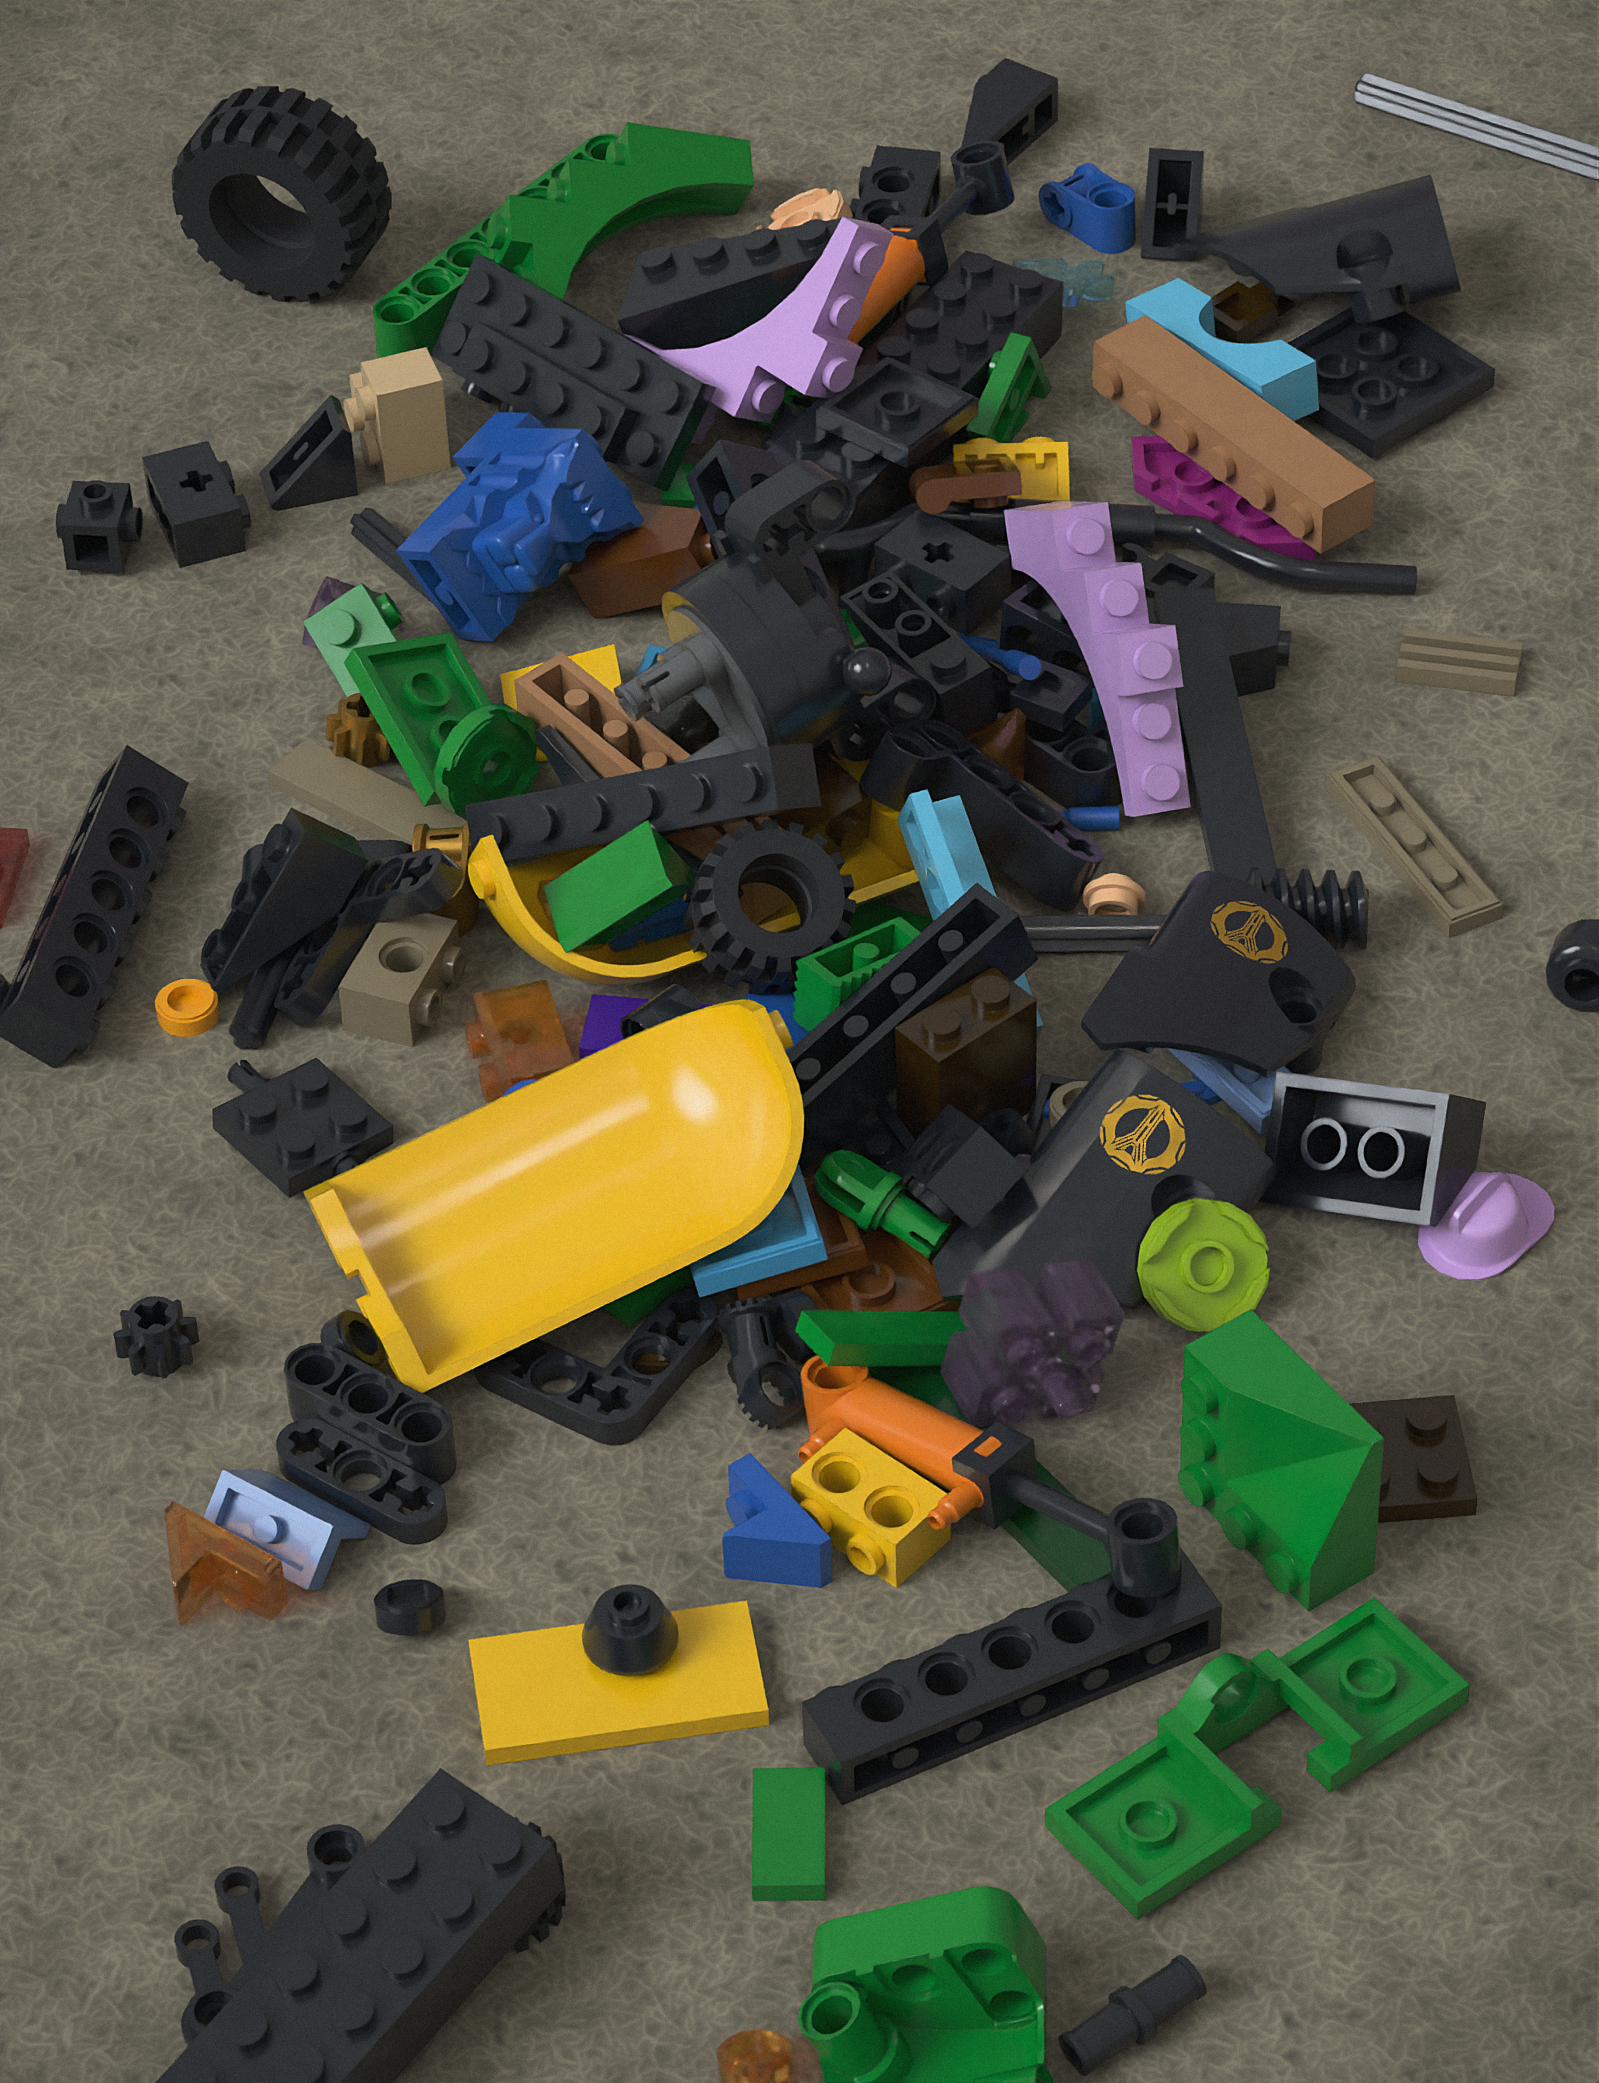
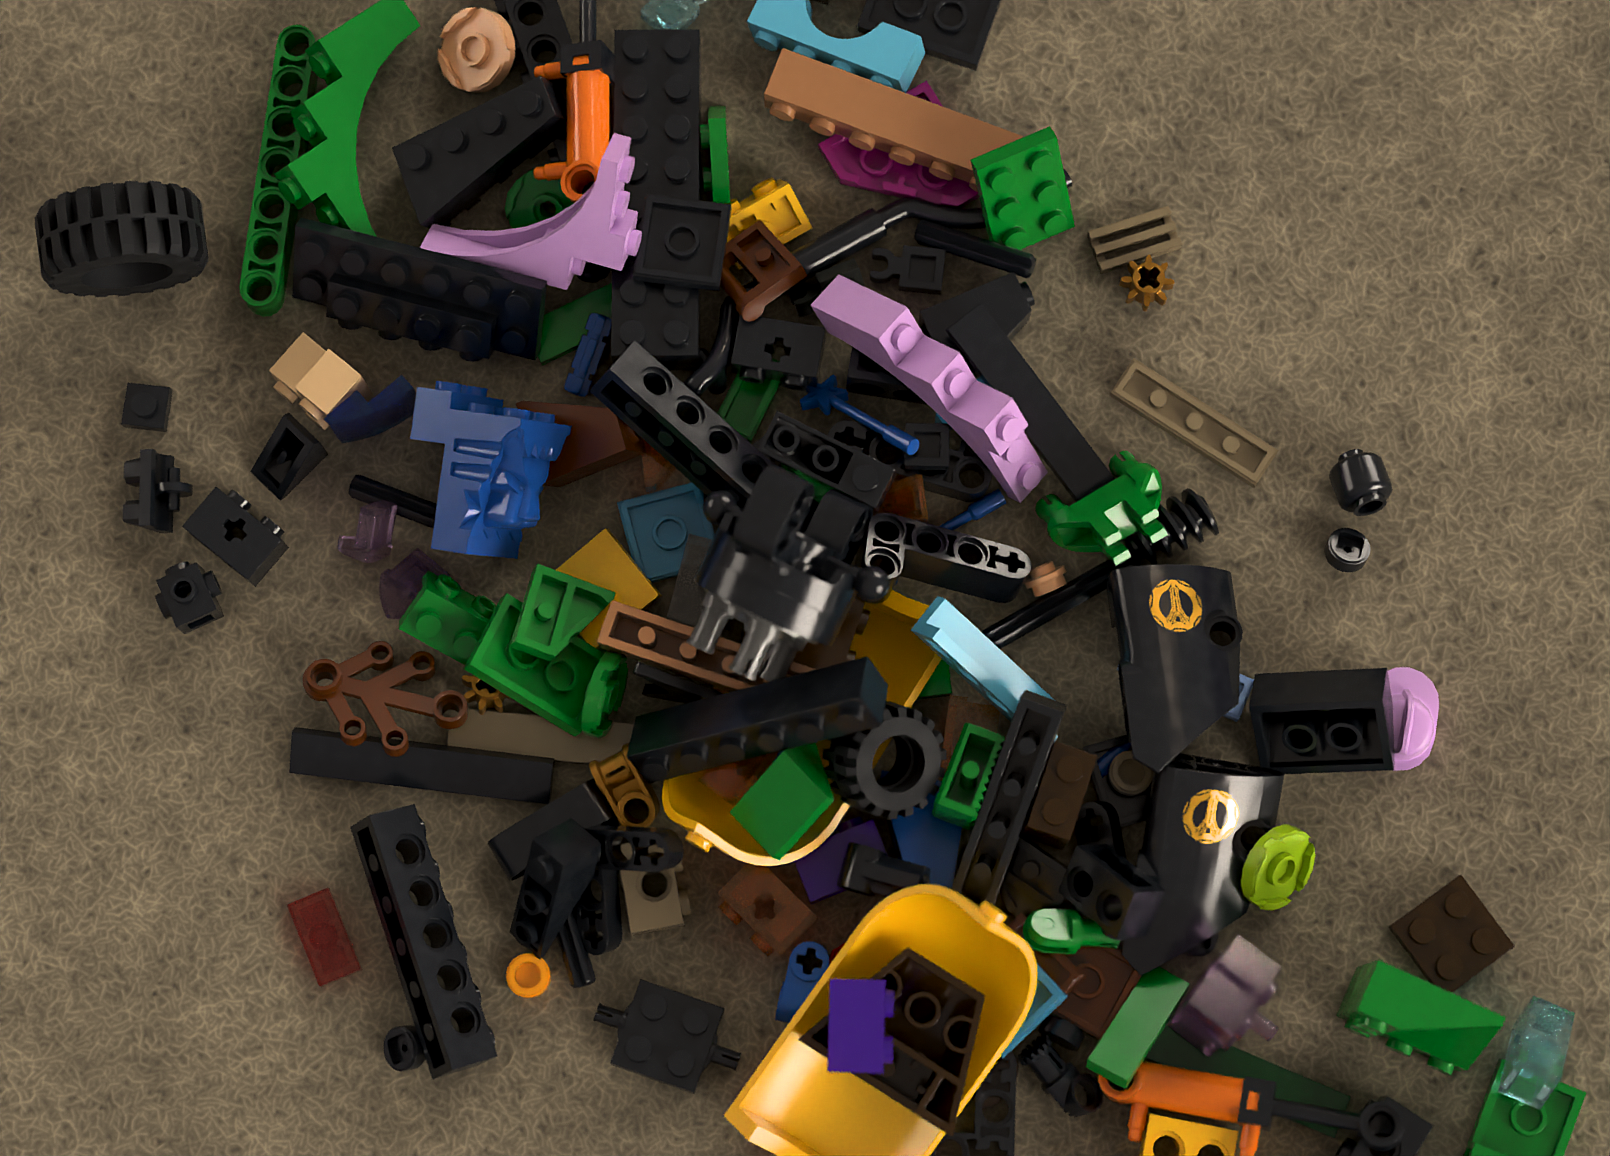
camera: 30 degrees left, 35 degrees up
(140, 431) = (158, 491): none -> black hips
(187, 649) = (379, 693): none -> reddish brown plant
(194, 381) = (147, 407): none -> black plate
(217, 761) = (423, 766): none -> black tile
(348, 547) = (373, 533): none -> tile
(420, 439) = (359, 420): none -> clear blue slope
(479, 663) = (555, 612): none -> green wing
(529, 1108) = (857, 1026): none -> dark purple brick
(582, 1178) = (931, 1035): none -> dark brown wedge
(1235, 839) = (1110, 512): none -> green connector
(1253, 582) = (975, 248): none -> black axle
(1340, 531) = (1023, 190): none -> green plate
(1423, 1586) = (1536, 1052): none -> clear light blue brick
(1443, 692) = (1148, 293): none -> pearl gold gear
(1527, 1026) = (1347, 550): none -> black tile

